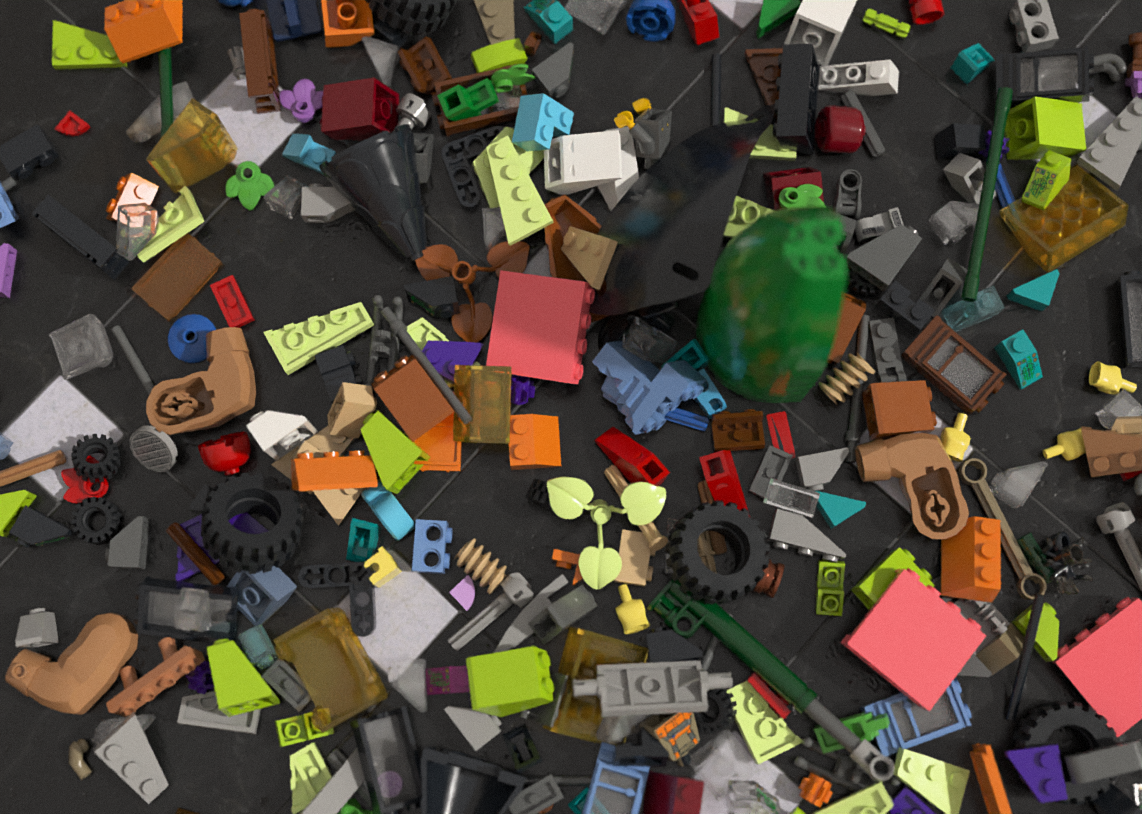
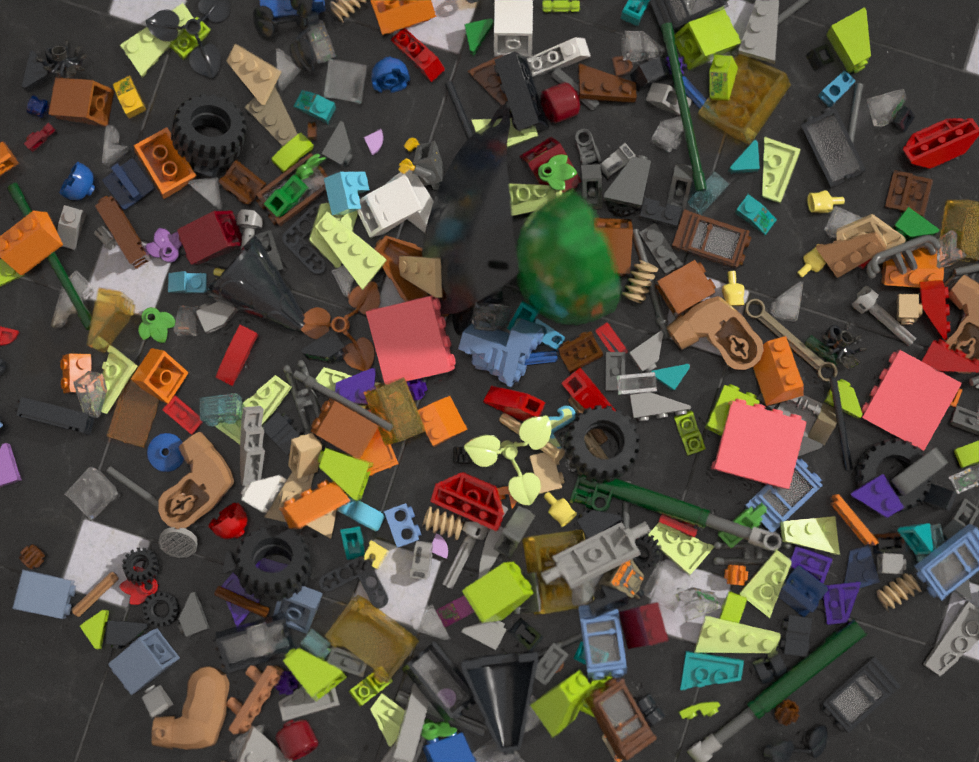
camera: 20 degrees left, 5 degrees up
(46, 573) = (143, 661): none -> sand blue slope
(182, 753) = (296, 739): none -> dark red head
(204, 32) = (70, 226): none -> light grey slope
(225, 243) = (159, 375): none -> orange slope
(278, 313) = (221, 409): none -> clear light blue brick
(295, 368) = (251, 445): none -> light grey slope
(327, 259) = (236, 355): none -> red slope
(435, 600) = (422, 560): none -> light grey leg
(527, 550) = (470, 499): none -> red wedge
(600, 85) = (374, 141): none -> lavender tile
(673, 505) = (567, 415): none -> animal
(764, 584) = (644, 446): copper wheel -> none
(899, 134) = (604, 86): none -> reddish brown wing
(929, 120) = (621, 66): none -> reddish brown tile
(961, 105) = (639, 46): none -> clear slope
(1069, 316) = (778, 168): none -> yellowish green wing

